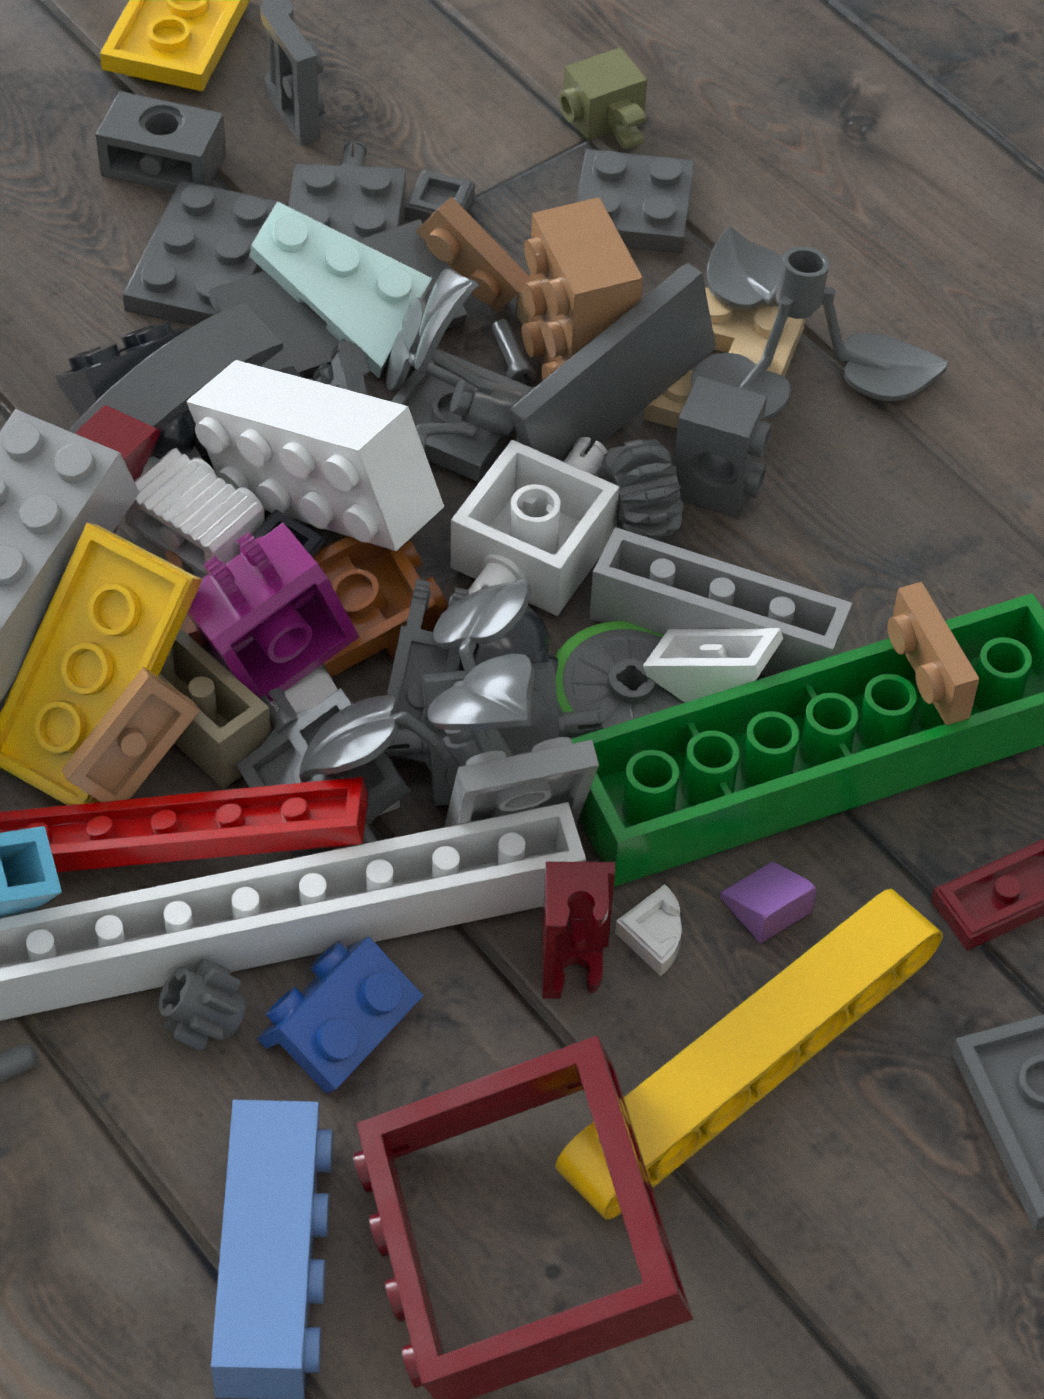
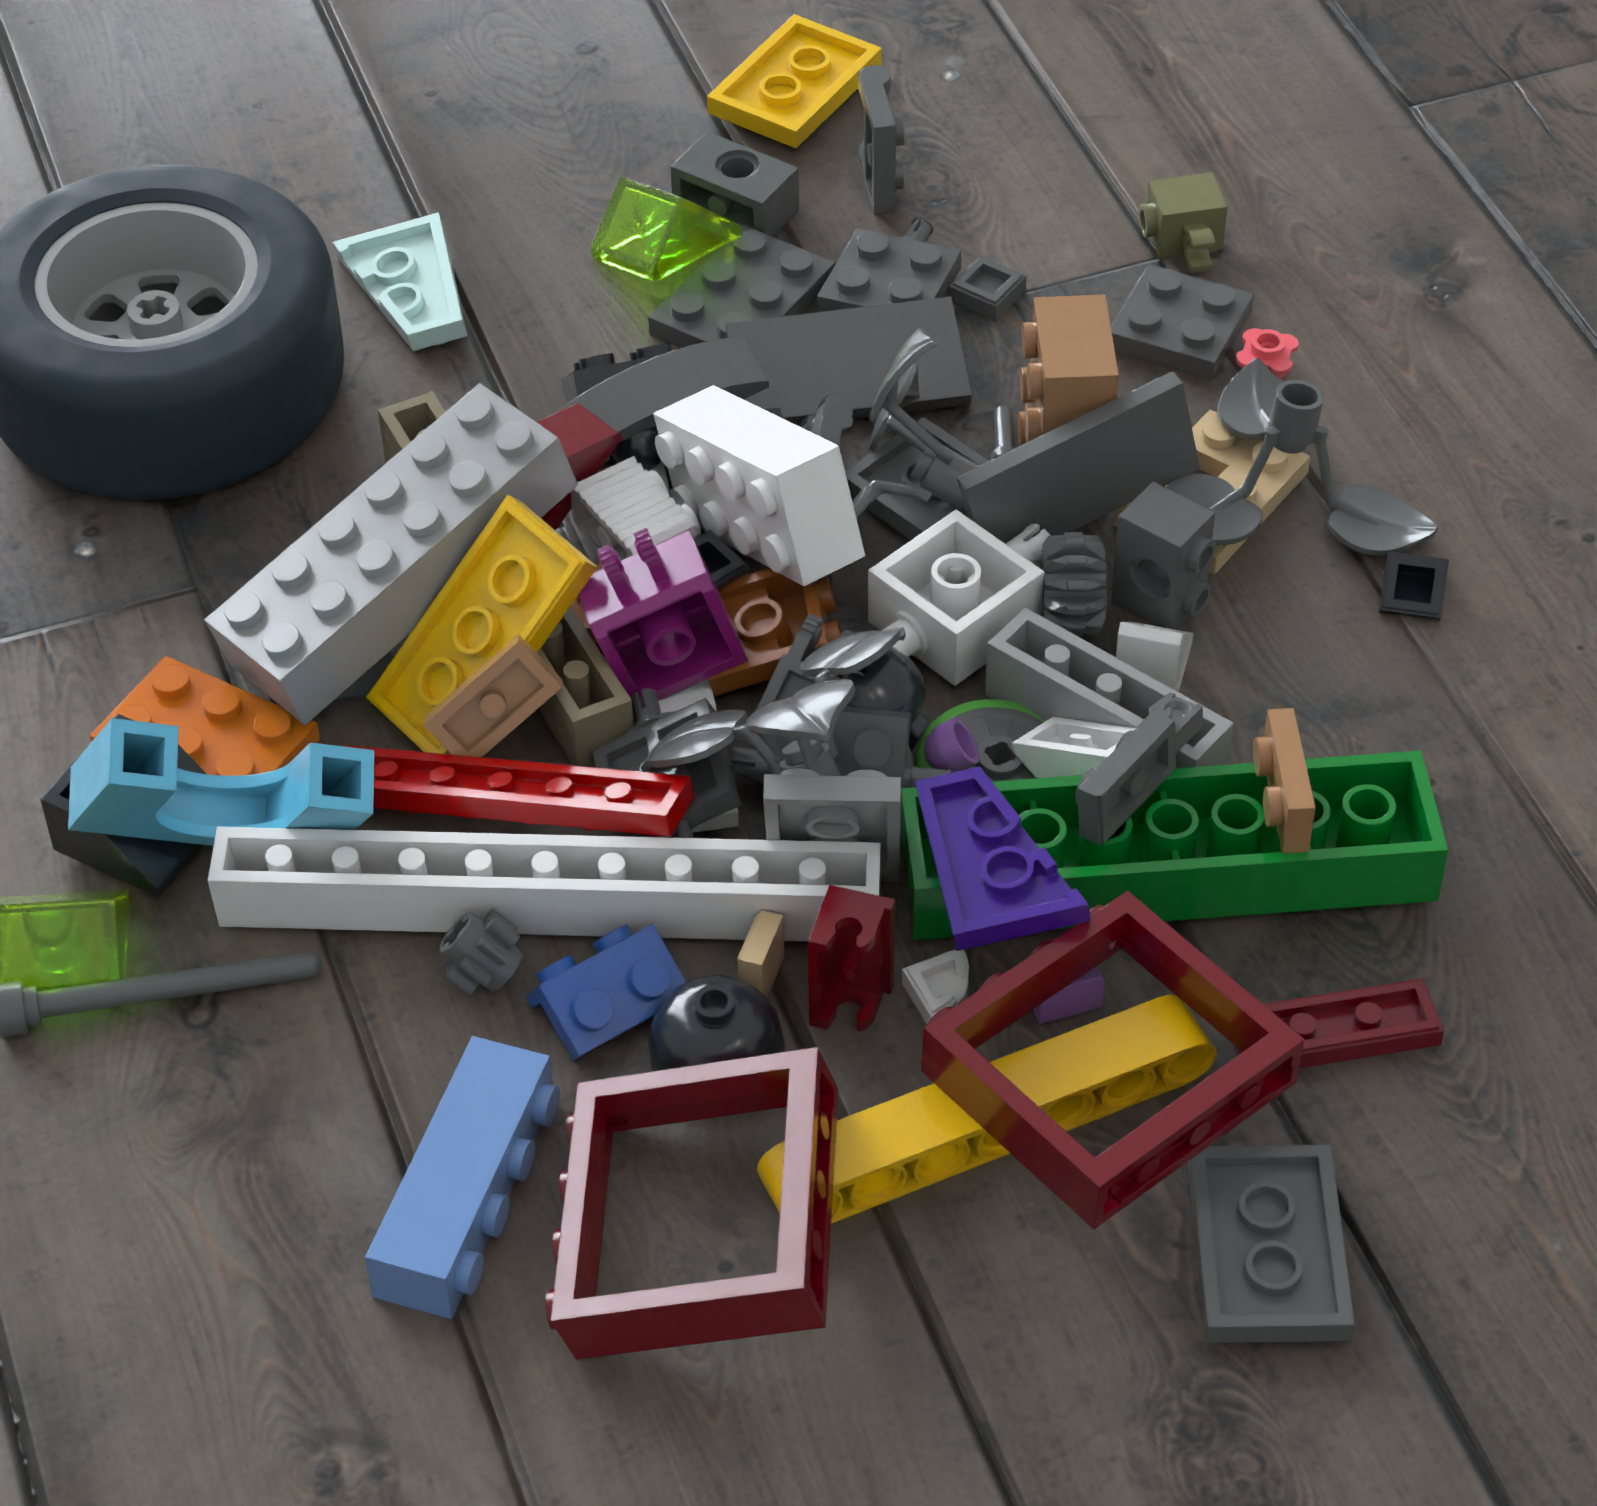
camera: 20 degrees right, 5 degrees down
(102, 205) = (657, 231): none -> clear neon green slope
(342, 280) = (846, 333): light aqua wing -> none
(462, 1033) = (713, 1022): none -> black cylinder
(473, 254) = (981, 324): medium nougat plate -> none
(479, 943) = (762, 951): none -> tan tile
(588, 684) = (951, 746): none -> medium lavender hinge
(686, 805) = (989, 866): none -> dark purple wing
(724, 212) = (1271, 347): none -> coral plate
(739, 539) = (1155, 651): none -> white slope
(787, 670) = (1135, 767): none -> dark grey hinge
(815, 1066) = (1158, 1147): none -> dark red window
(943, 423) = (1414, 585): none -> black slope

